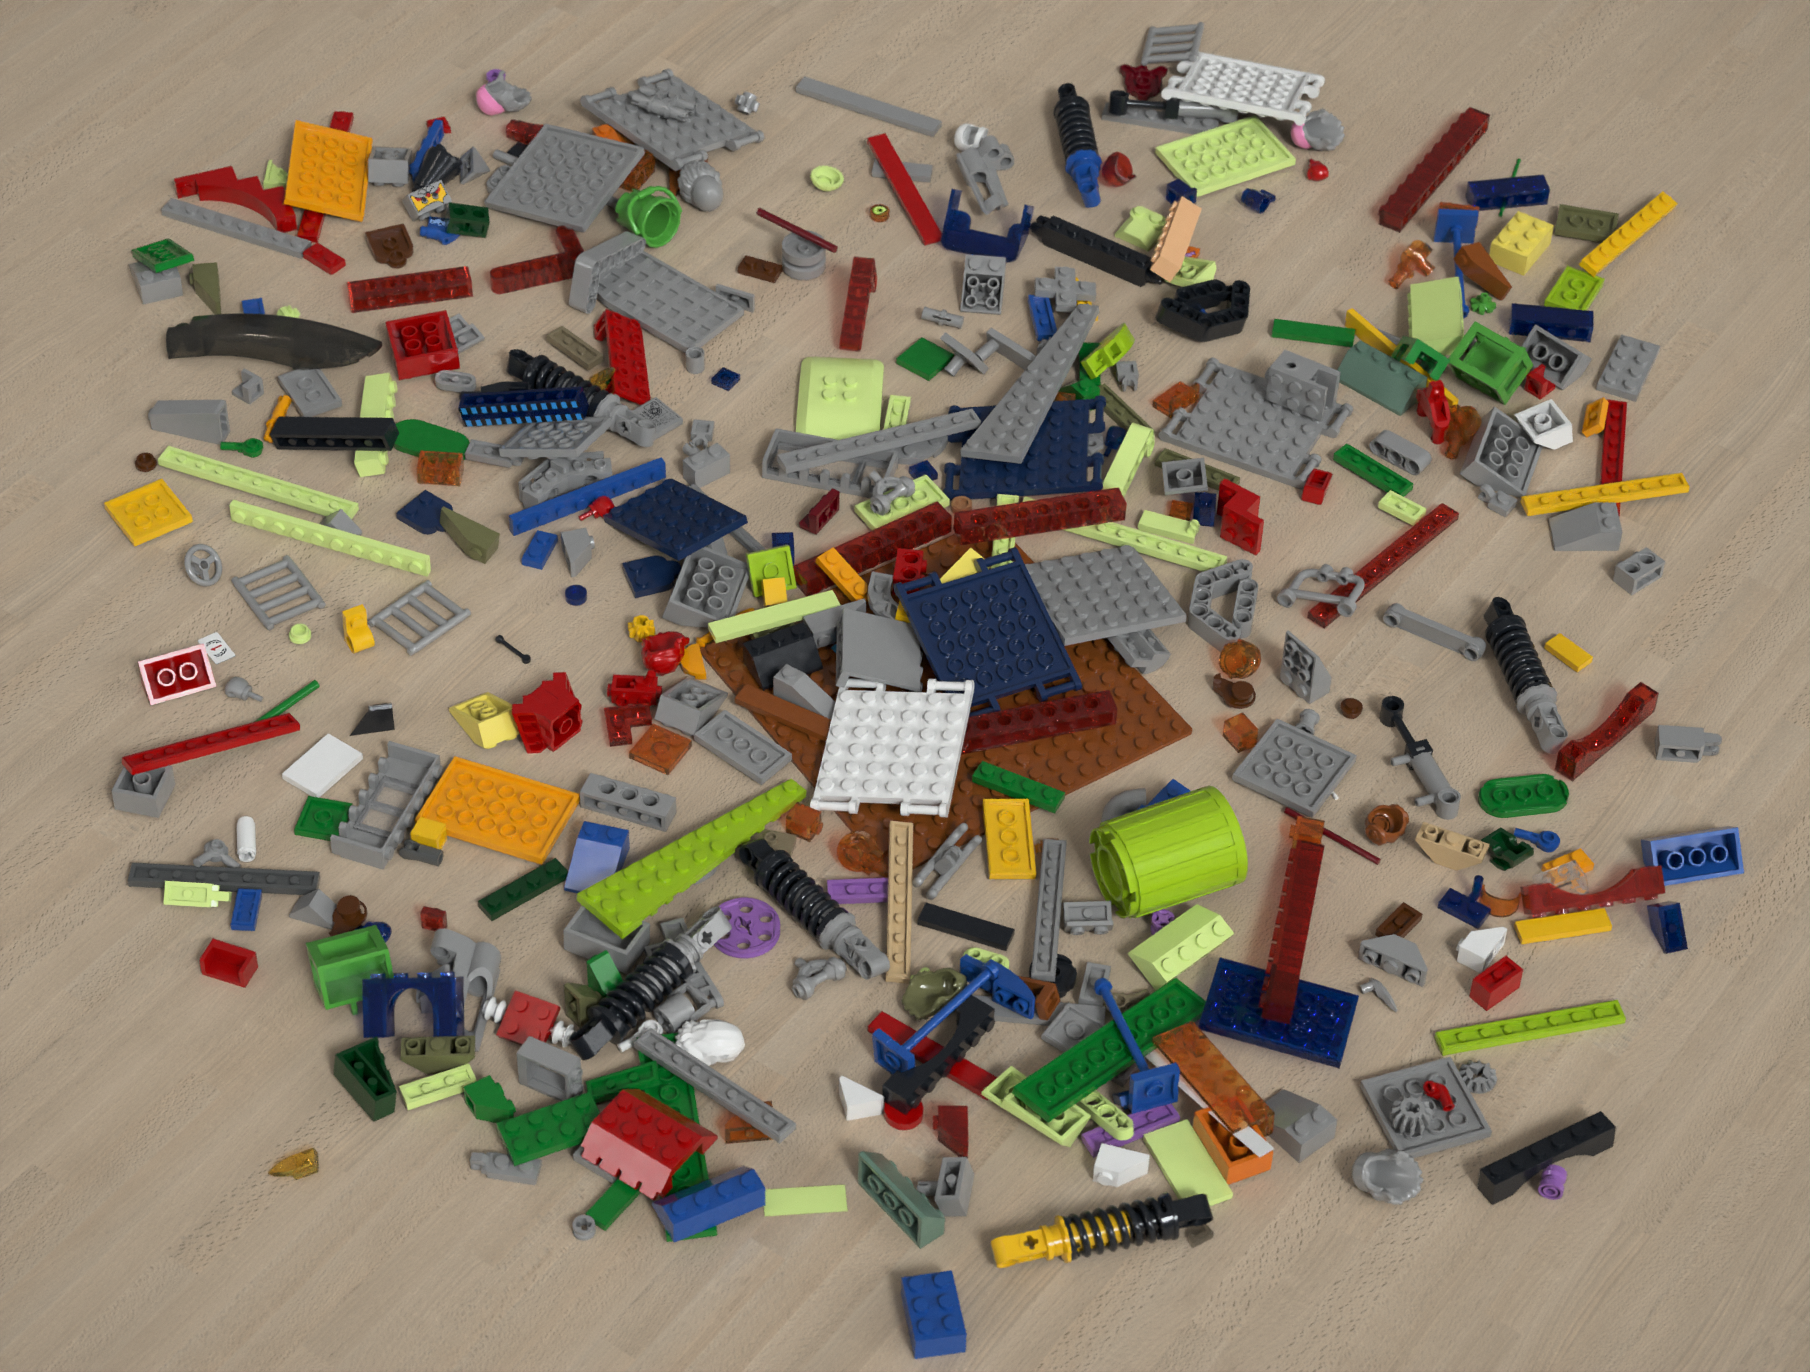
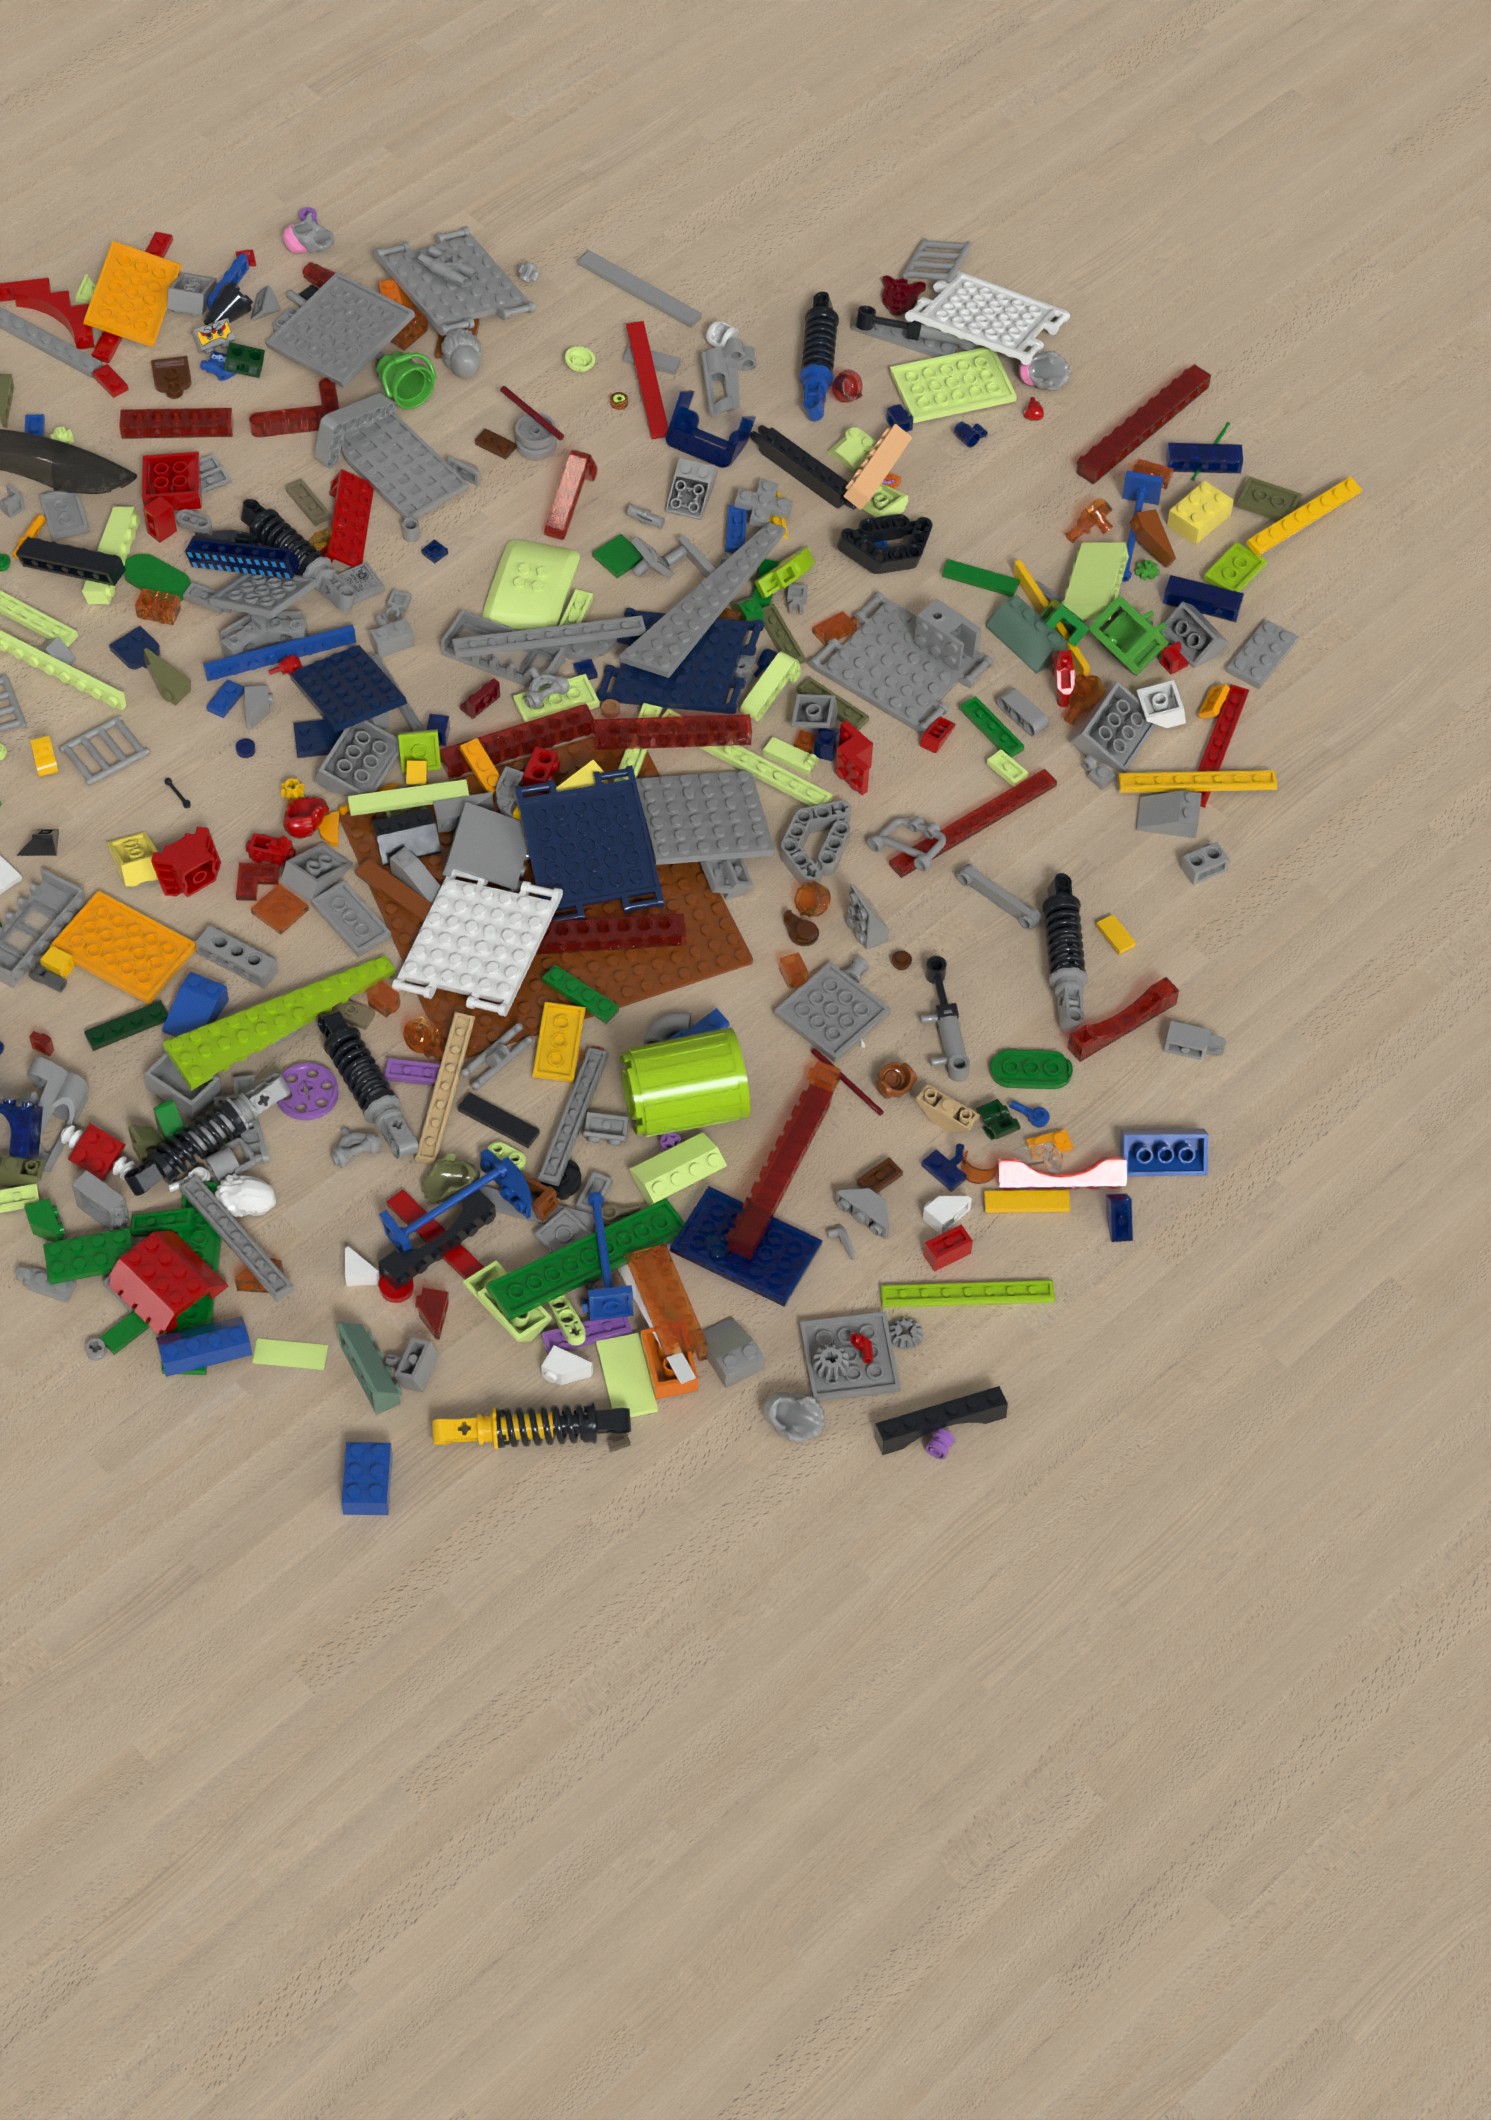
camera: 10 degrees right, 10 degrees up
(420, 381) = (160, 519): none -> red panel

